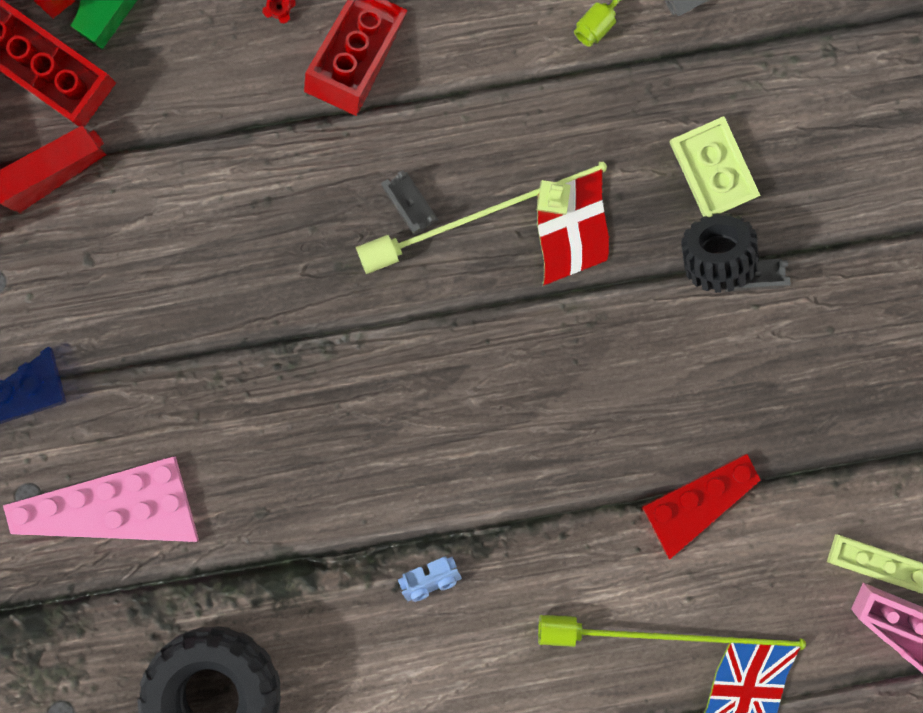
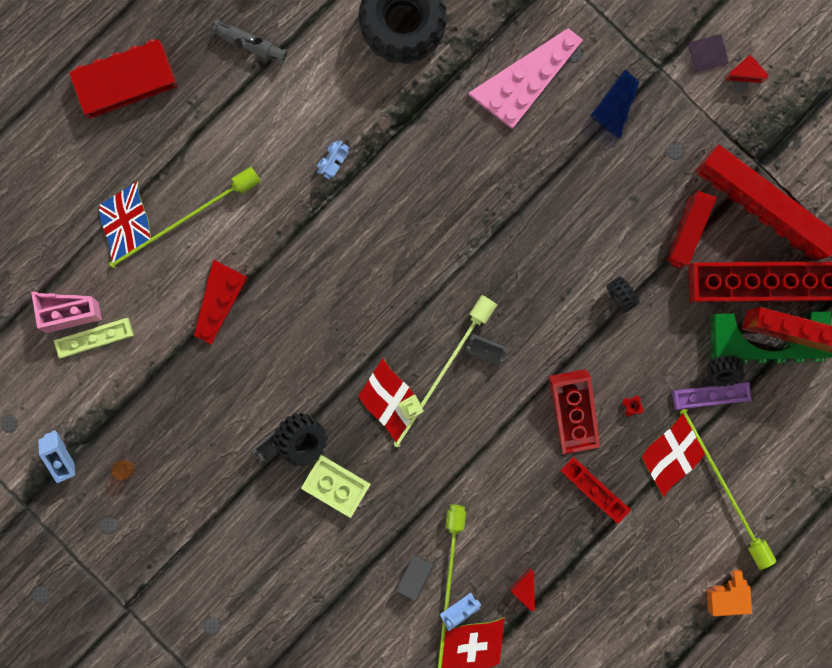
camera: 140 degrees right, 0 degrees up
(190, 148) = (623, 294): none -> black tyre

